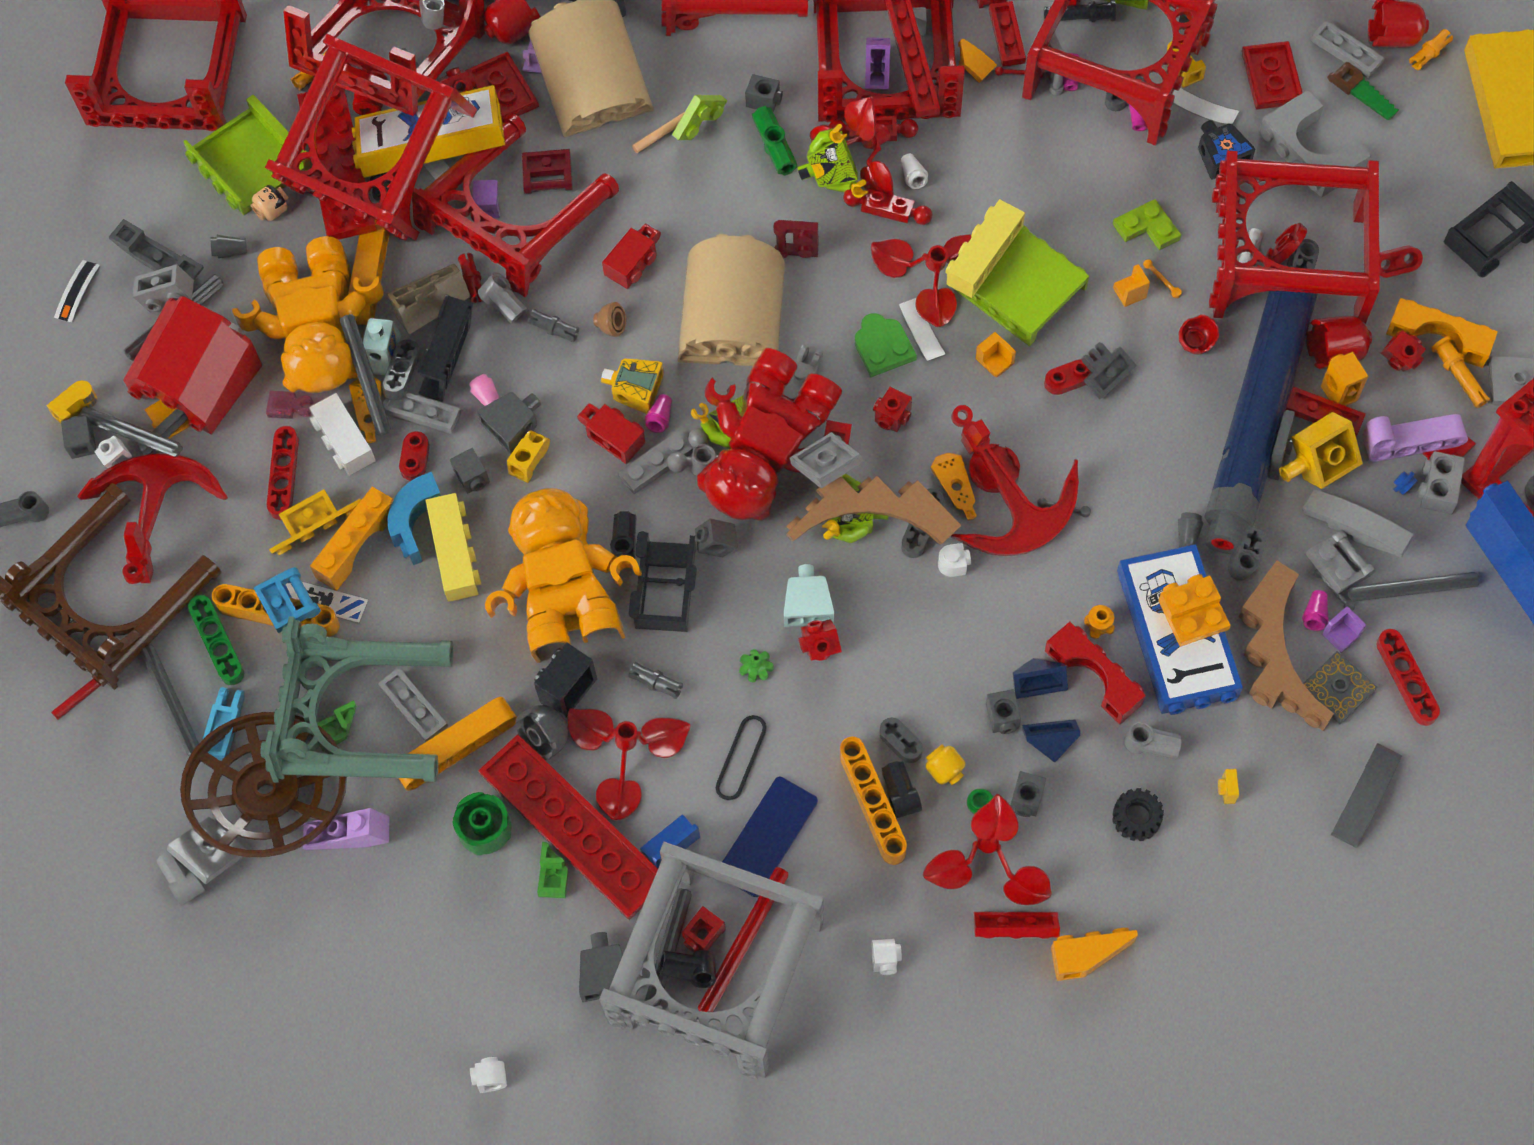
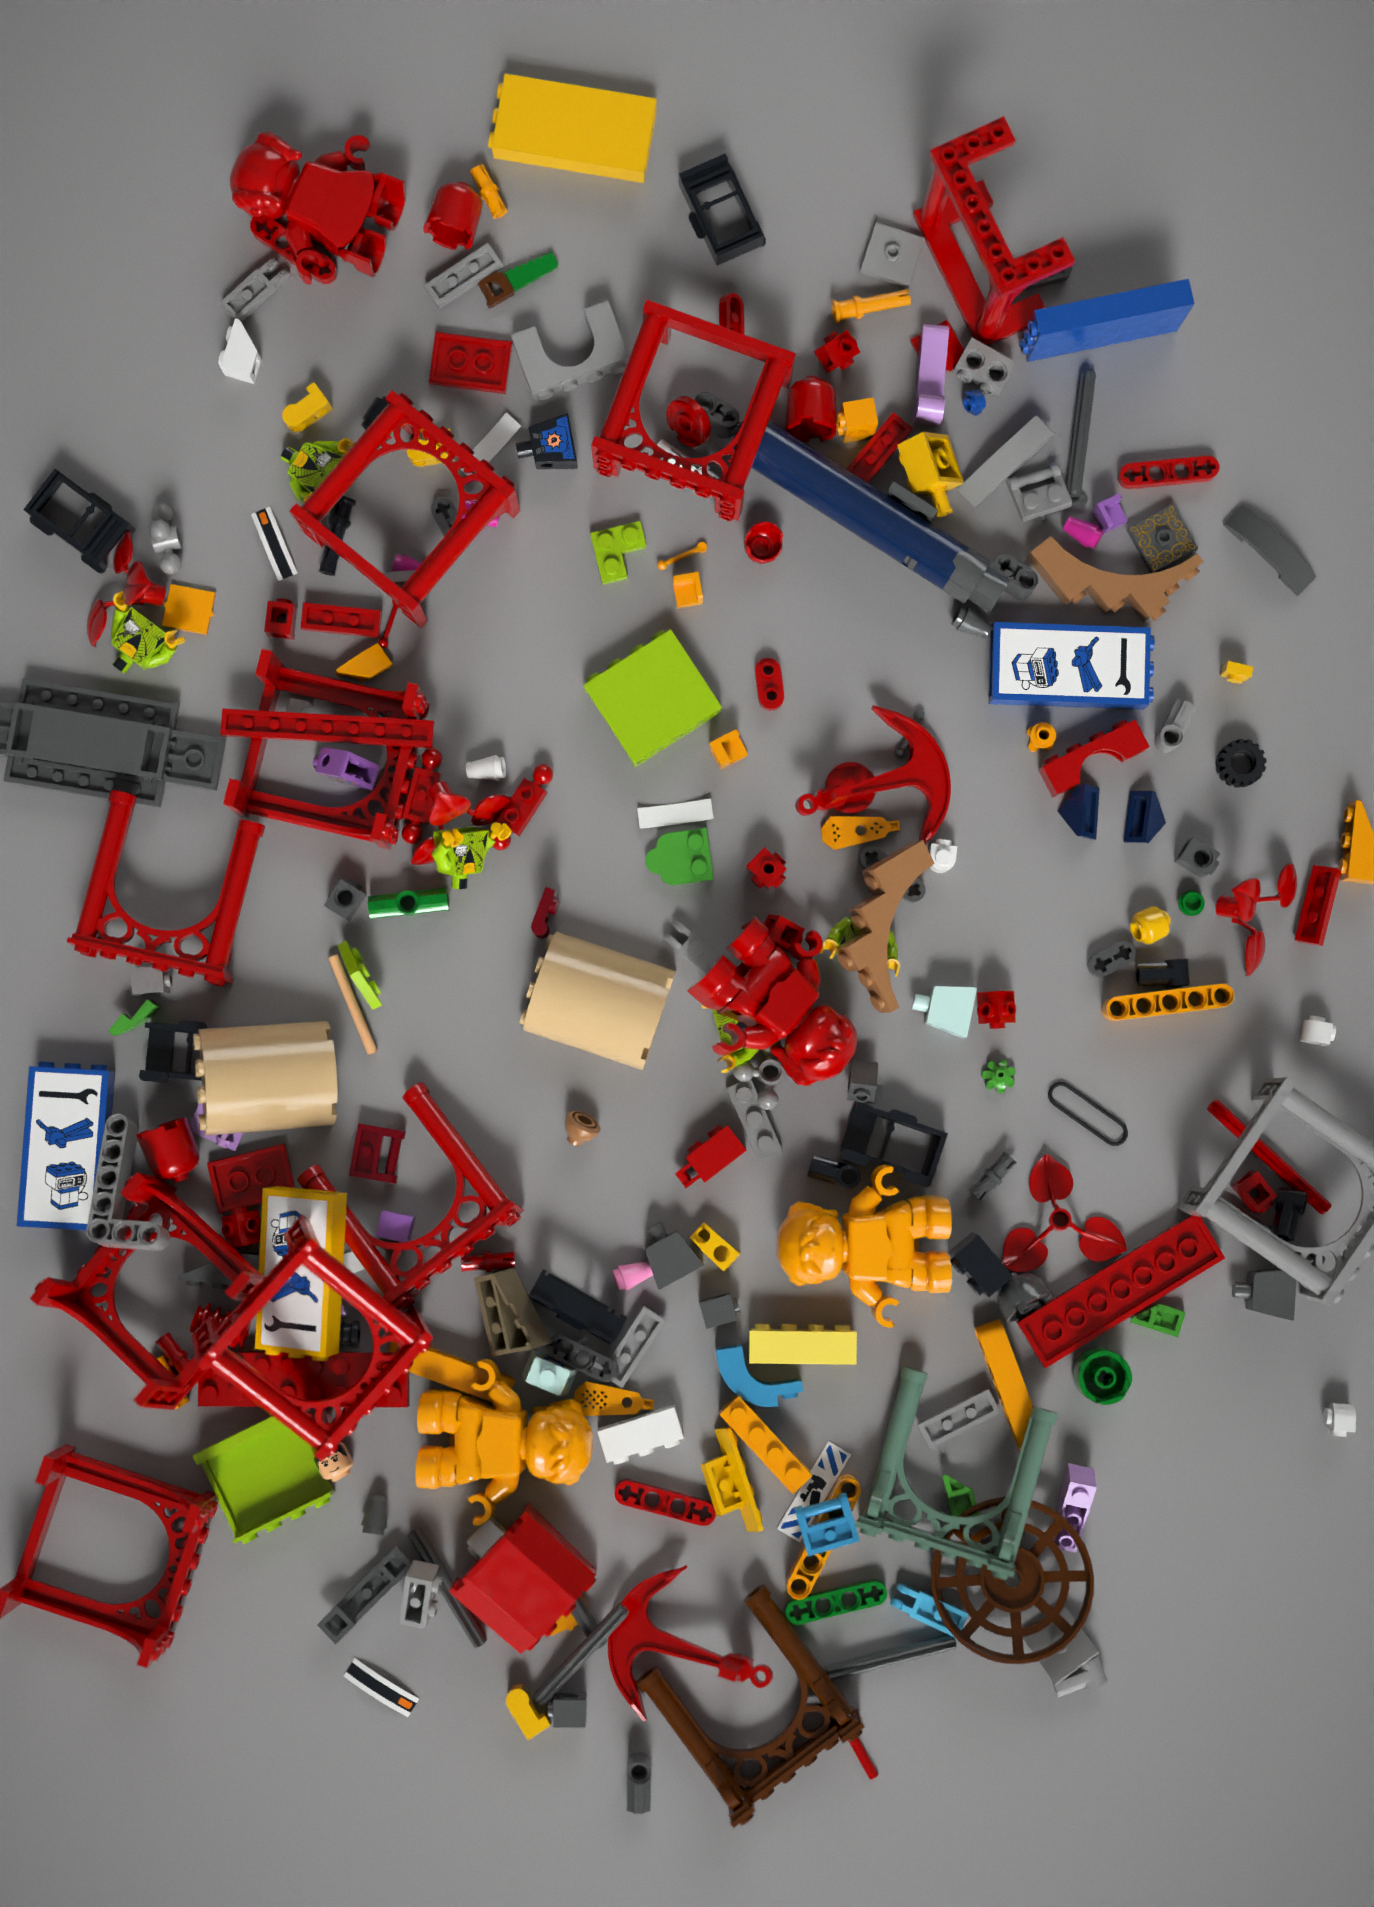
camera: 85 degrees left, 20 degrees up
(112, 452) = (599, 1677): white plate -> none
(284, 405) = (588, 1487): clear pink plate -> none
(365, 375) = (588, 1397): dark grey axle -> none
(414, 454) = (681, 1363): red plate -> none
(497, 293) = (520, 1237): light grey piece -> none
(553, 325) = (569, 1188): dark grey pin -> none
(631, 256) = (509, 1087): red brick -> none
(635, 383) = (662, 1120): yellow torso -> none
(659, 415) = (703, 1103): dark pink cone -> none
(678, 833) = (1159, 1201): blue panel -> none
(771, 829) = (1172, 1108): clear blue piece -> none
(826, 460) = (832, 953): light grey plate -> none
(895, 256) = (651, 793): red plant -> none
(985, 248) = (619, 724): light yellow brick -> none
(1006, 701) = (1100, 860): dark grey brick -> none
(1106, 368) = (776, 644): dark grey hinge -> none
(1193, 609) = (1066, 647): light orange plate -> none
(1468, 338) = (841, 282): light orange arch -> none

